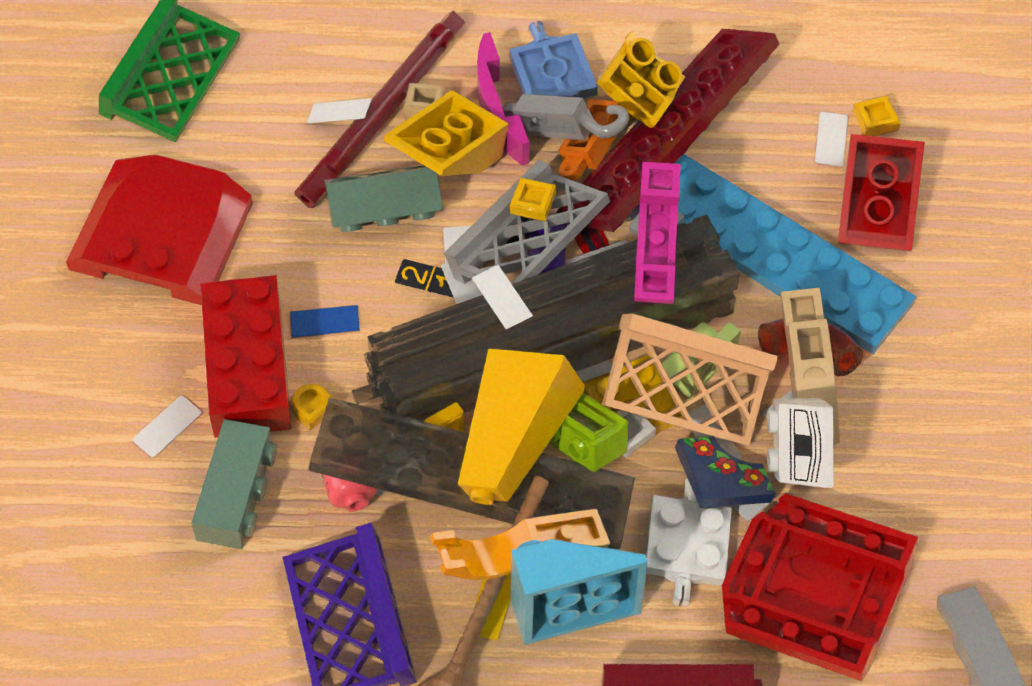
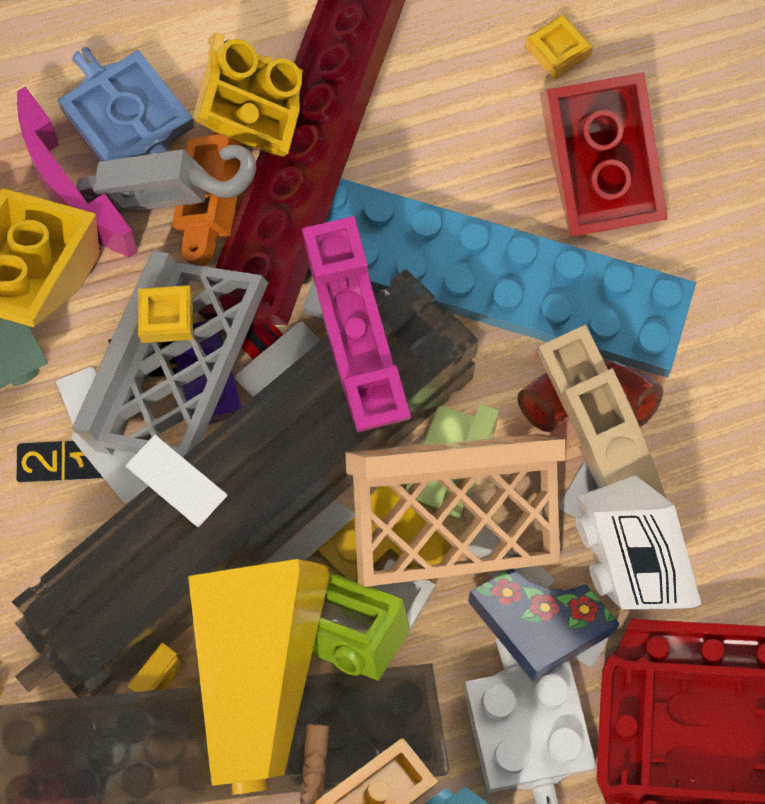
camera: 20 degrees left, 10 degrees up
(831, 139) = (512, 94): white sticker -> none

